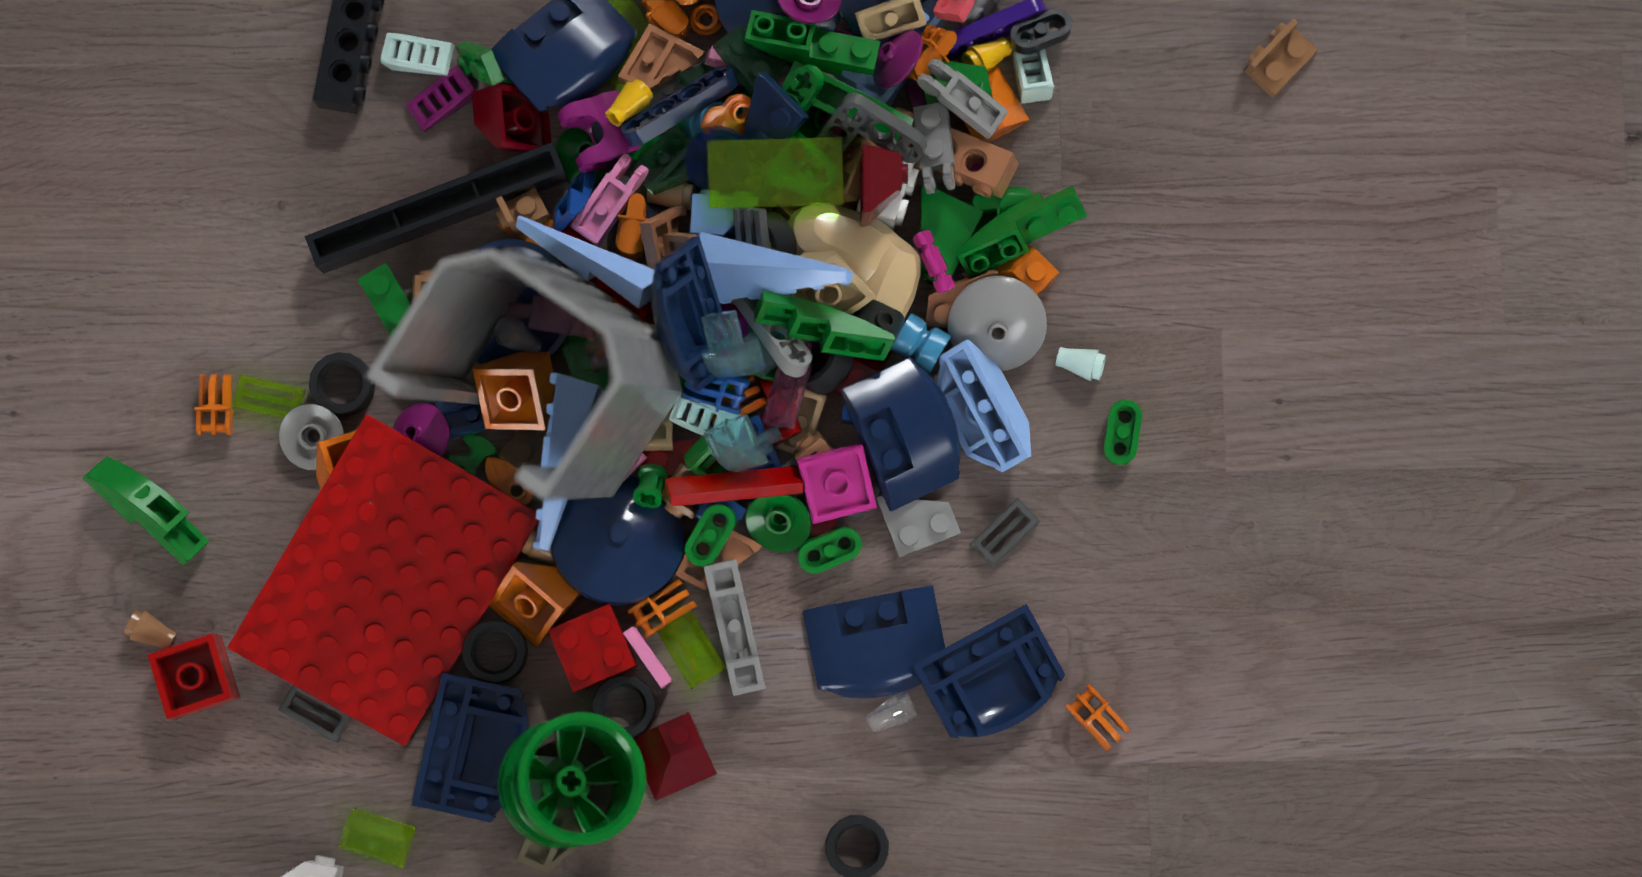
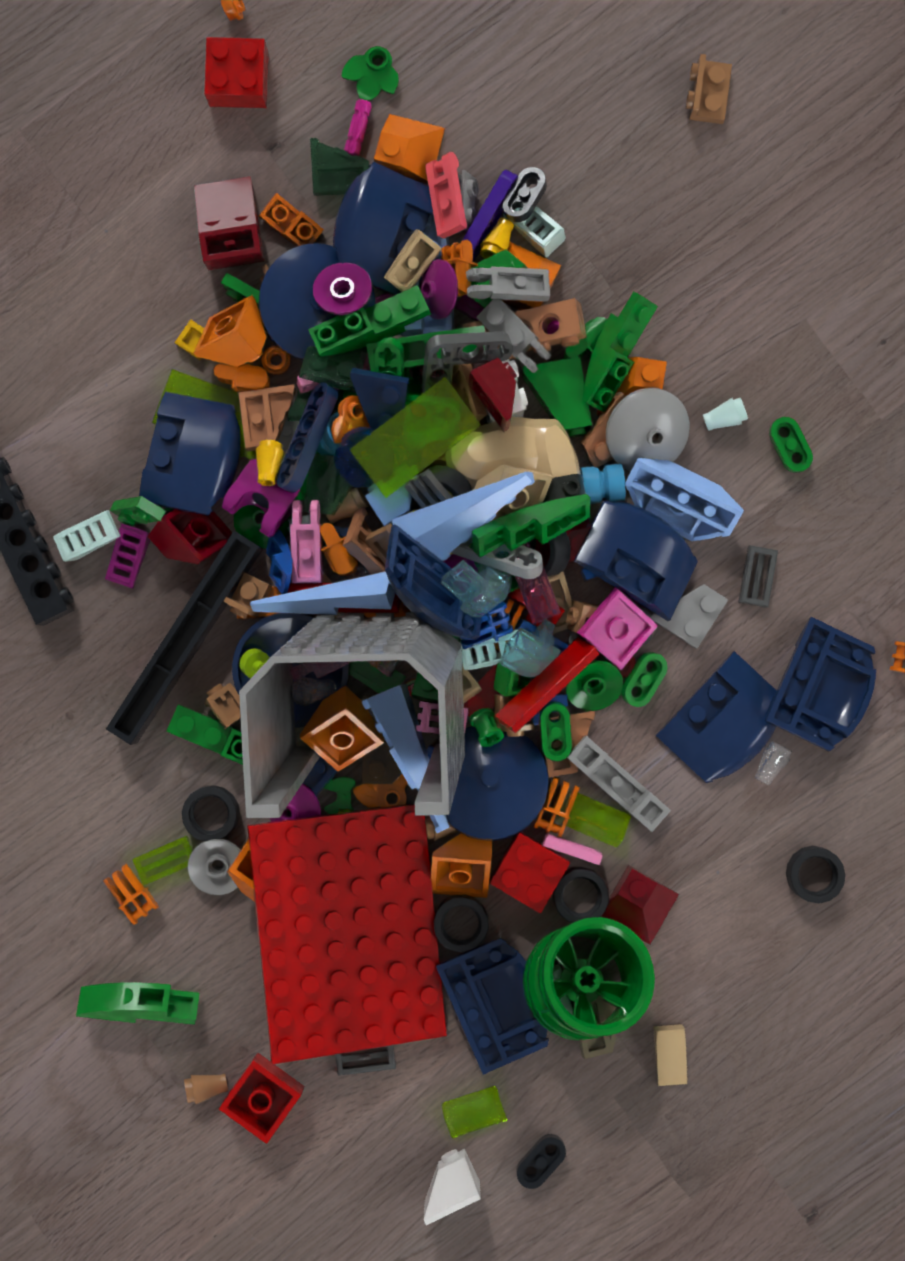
camera: 30 degrees left, 5 degrees up
(933, 261) = (572, 419): dark pink axle -> none

